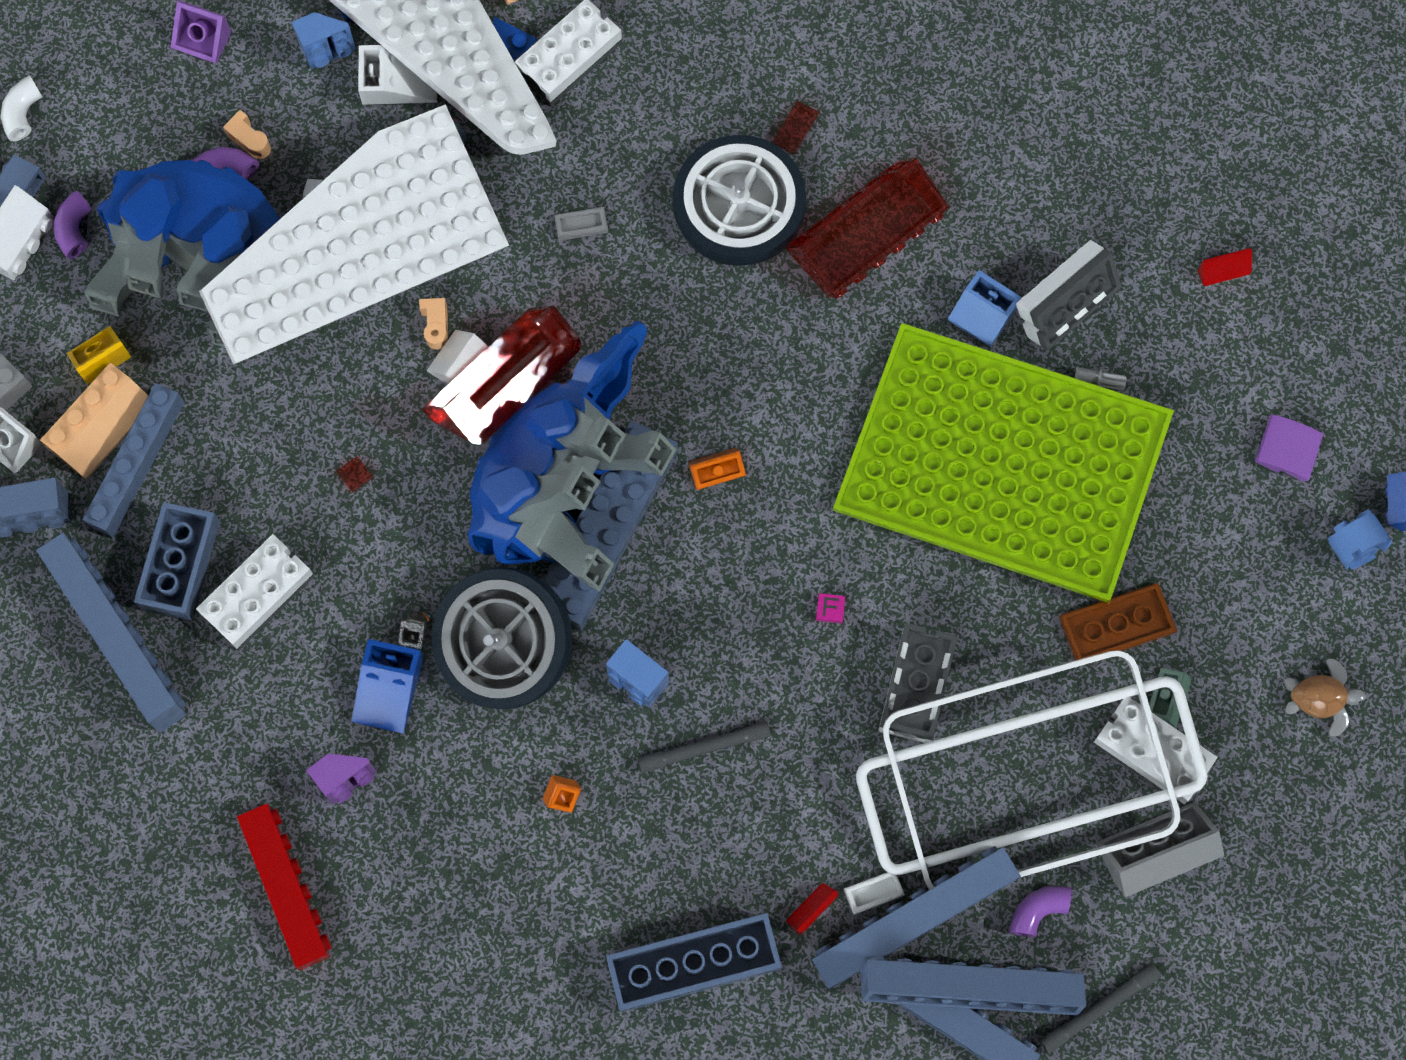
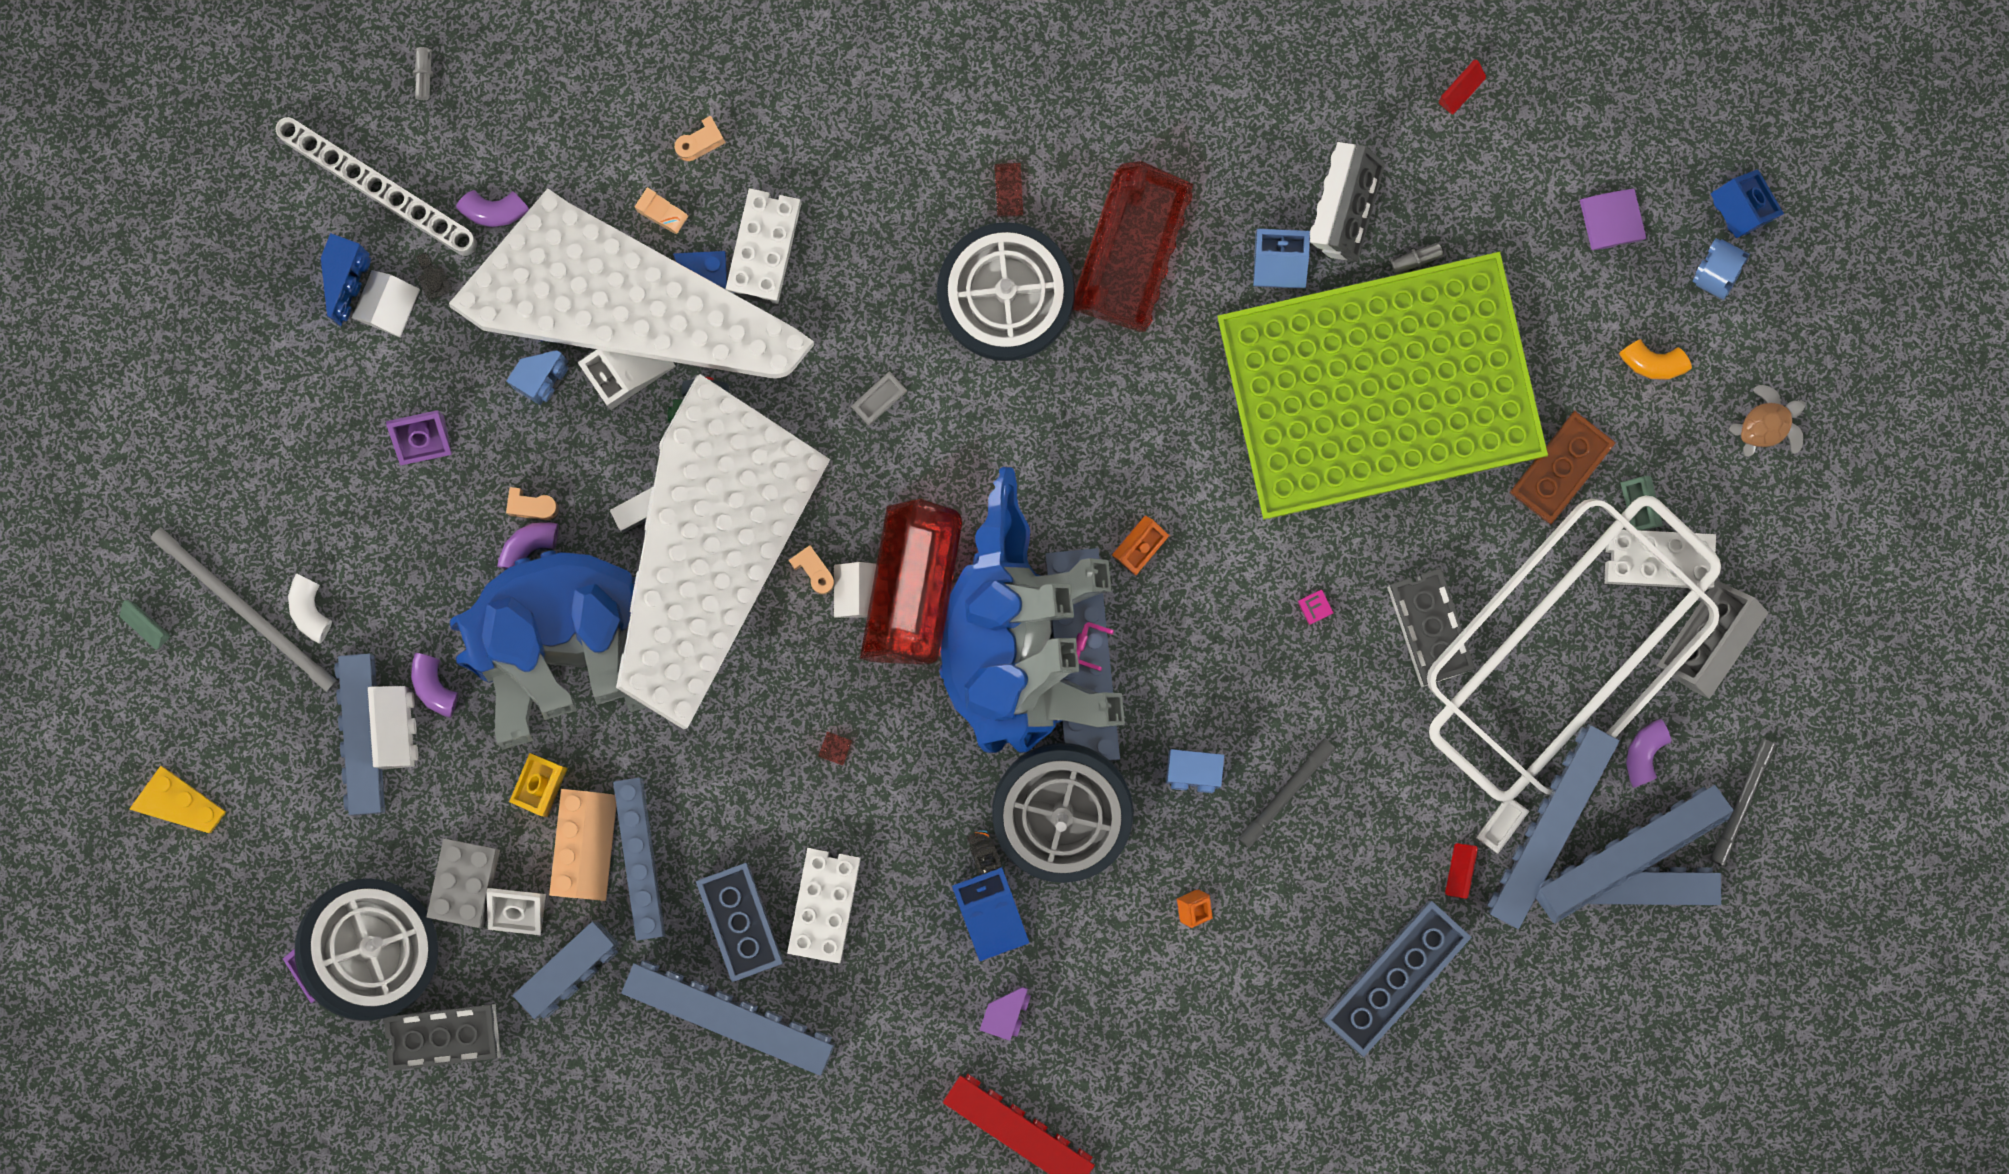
camera: 30 degrees left, 10 degrees up
(611, 506) = (1082, 639): none -> dark pink piece
(1250, 586) = (1655, 365): none -> light orange cylinder

